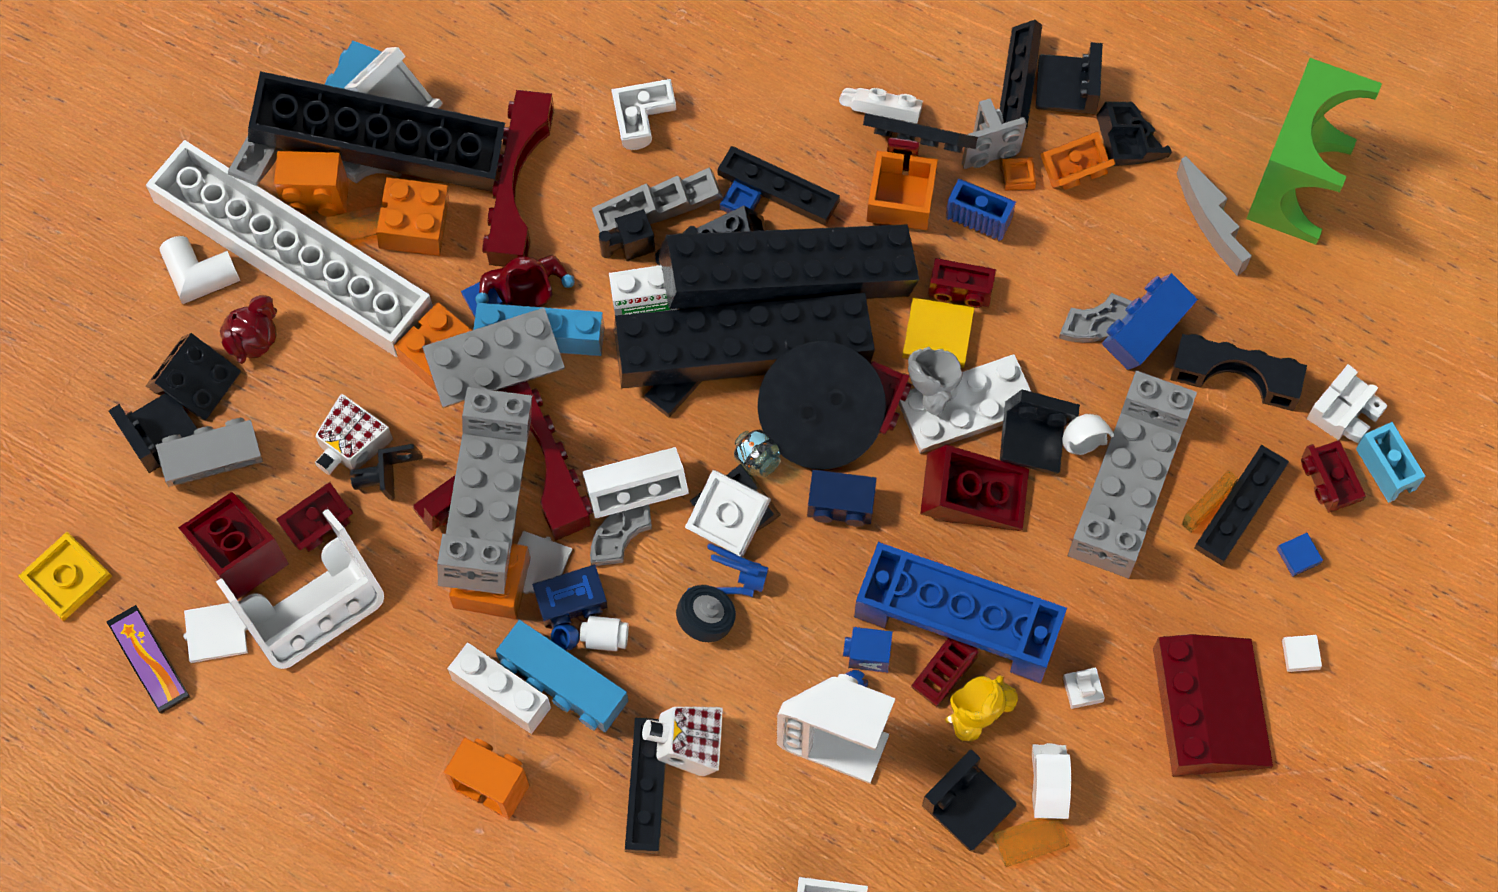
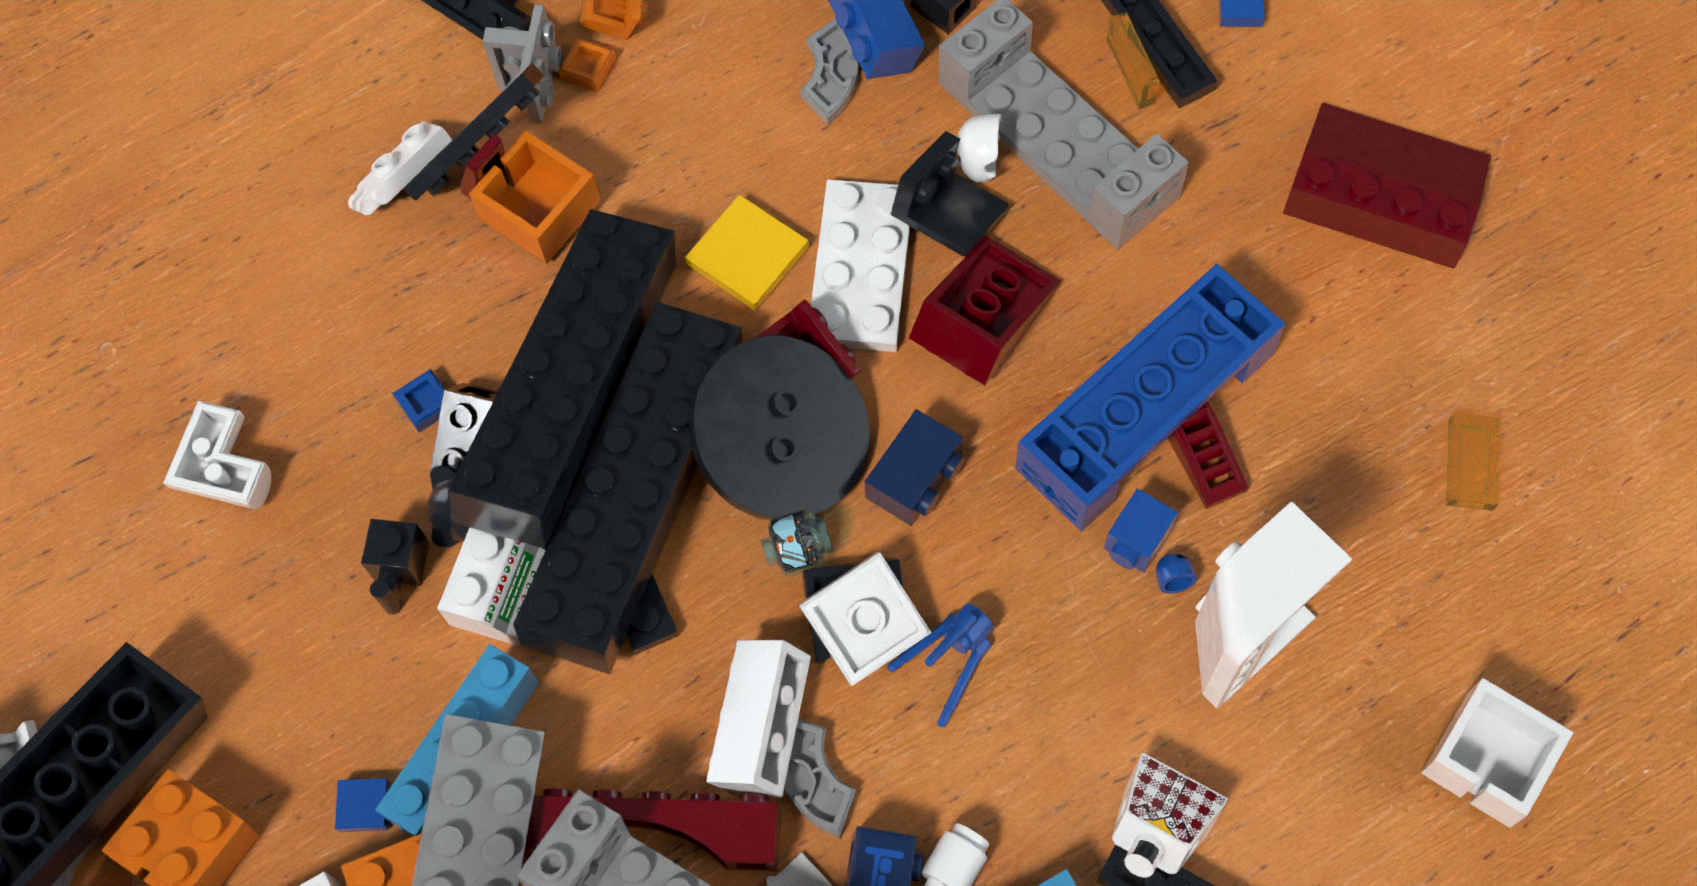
camera: 60 degrees left, 0 degrees up
(524, 281) = (375, 733): dark red piece -> none
(529, 125) = (289, 718): dark red arch -> none
(660, 201) = (364, 495): light grey slope -> none
(705, 613) = (992, 714): black wheel -> none
(779, 185) = (433, 342): black plate -> none
(934, 376) = (820, 274): light grey hair -> none
(961, 283) = (699, 192): dark red bracket -> none
(968, 802) = (1397, 509): black bracket -> none
(979, 705) = (1276, 436): yellow hair -> none
(980, 209) = (615, 122): blue brick -> none
(1051, 781) = (1418, 393): white brick -> none
(1083, 688) = (1302, 309): white tile -> none
(1301, 653) = (1364, 60): white tile -> none

